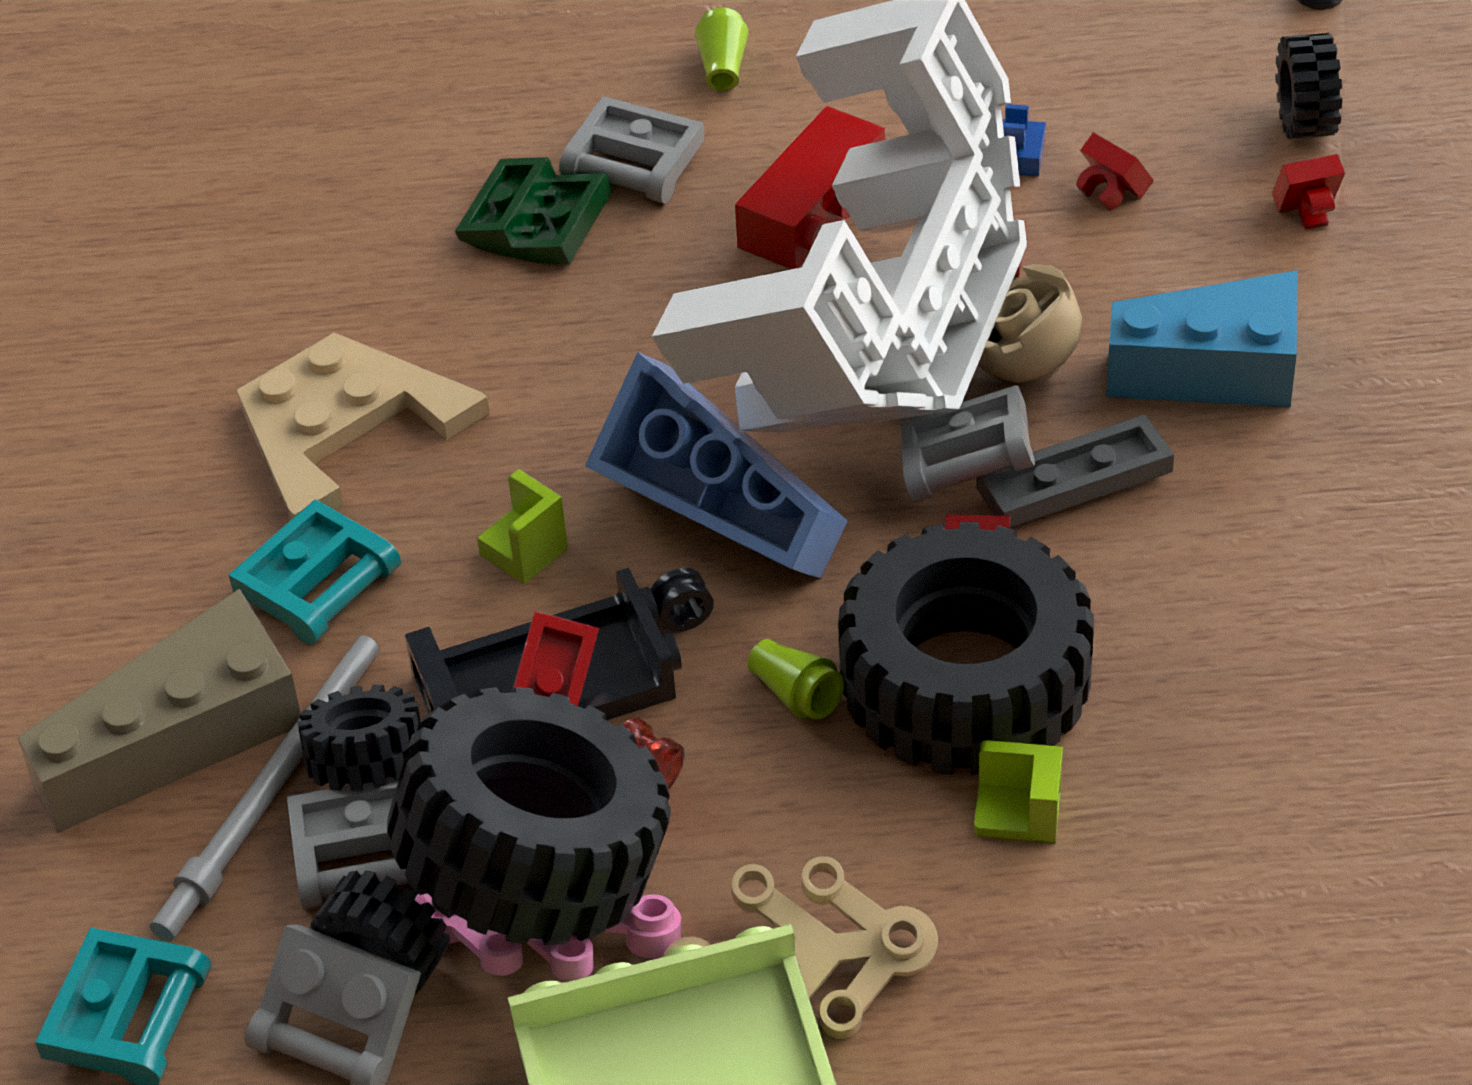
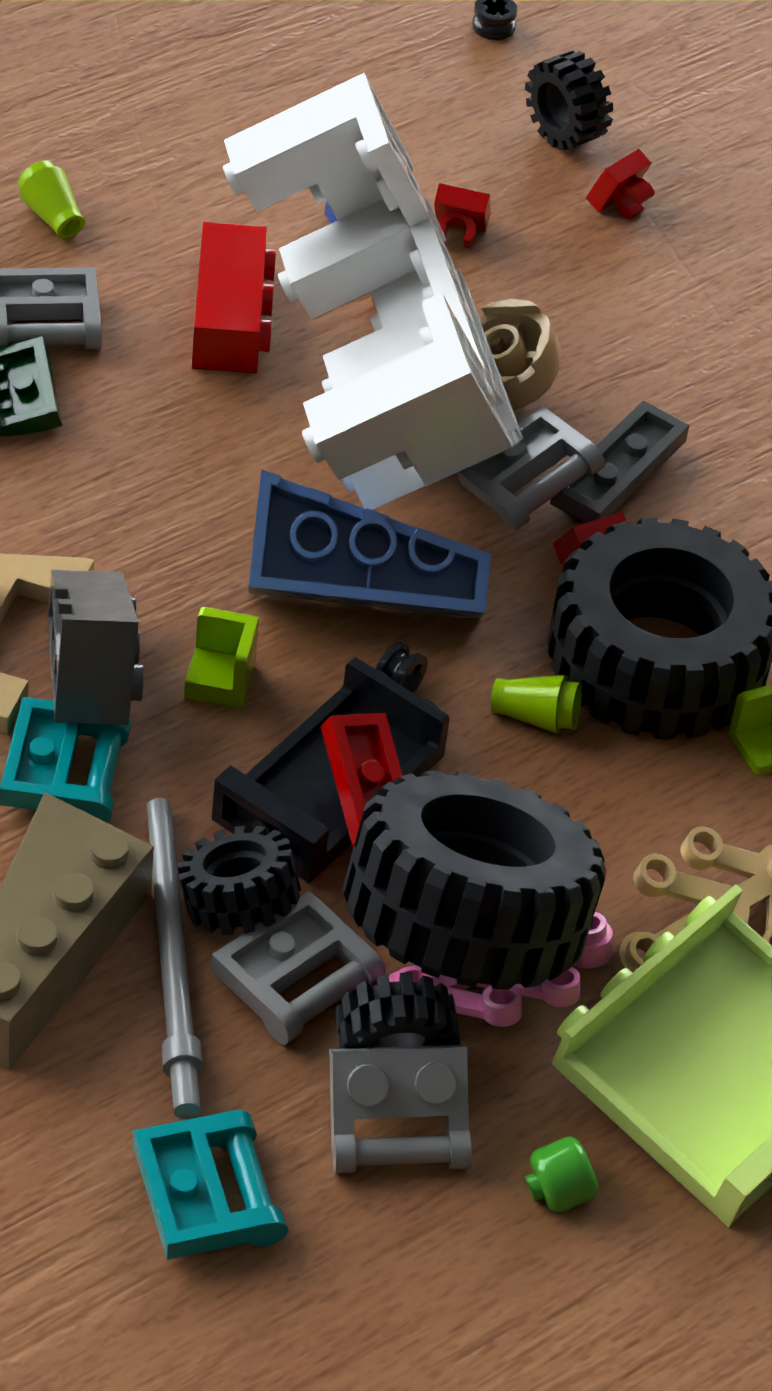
camera: 40 degrees left, 0 degrees up
(394, 468) = (93, 647): none -> dark grey wedge
(1208, 343) = (648, 330): dark azure wedge -> none

